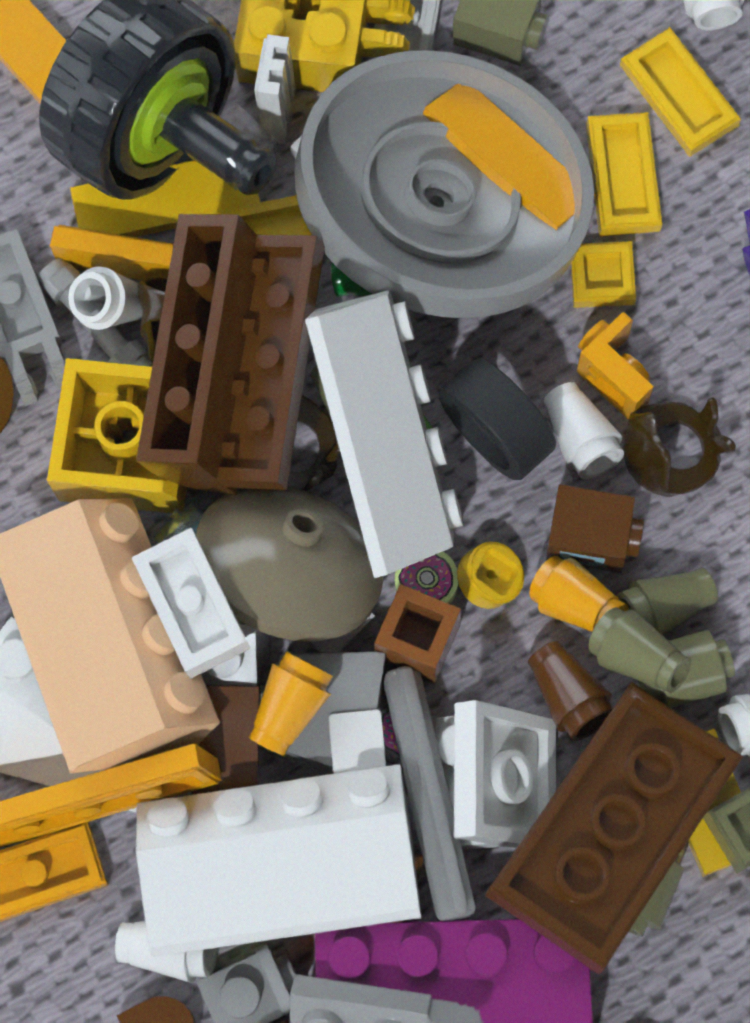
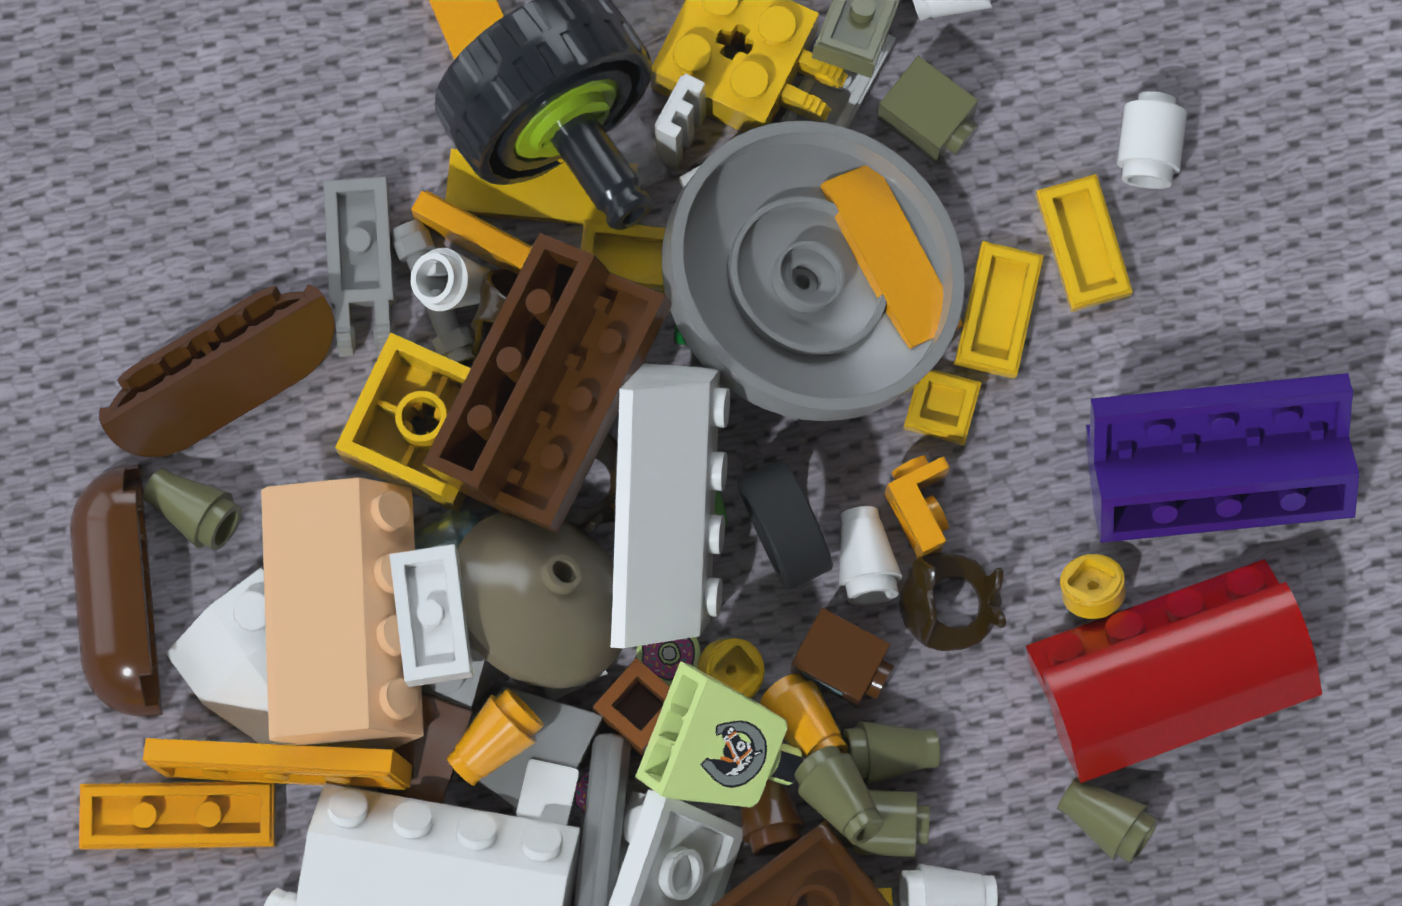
camera: 15 degrees right, 5 degrees up
(504, 638) = (715, 744): none -> yellowish green torso

